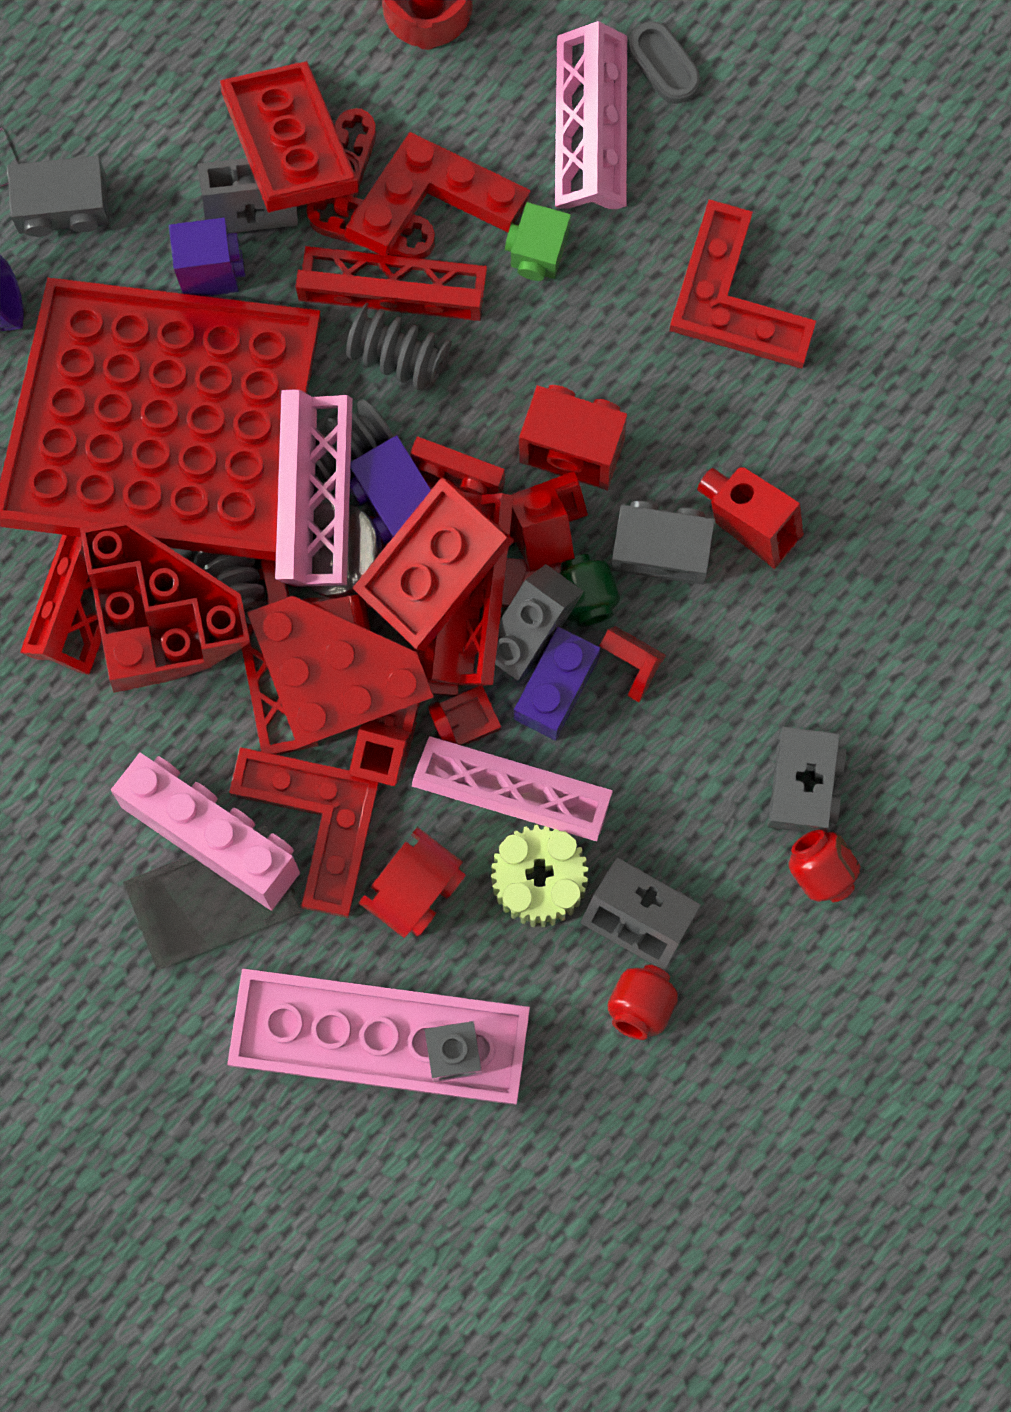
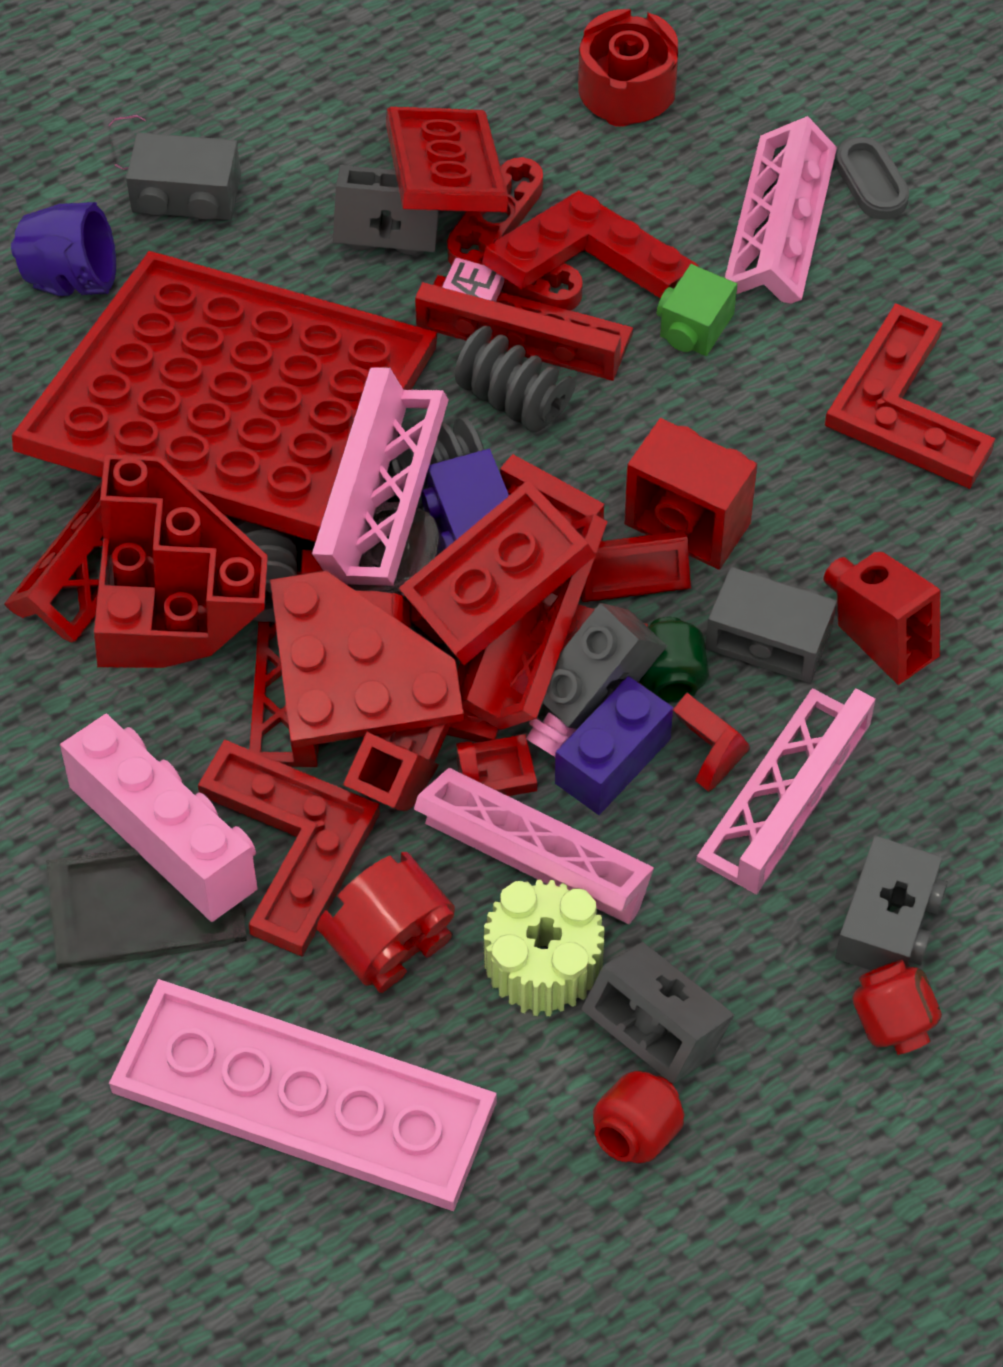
camera: 10 degrees right, 20 degrees down
(206, 257) = (325, 251): dark purple brick -> none
(338, 255) = (474, 280): none -> bright pink tile
(453, 1051) = (388, 1113): dark grey brick -> none
(505, 687) = (549, 733): none -> bright pink plate
(542, 529) = (634, 574): red brick -> none
(718, 691) = (796, 796): none -> bright pink fence

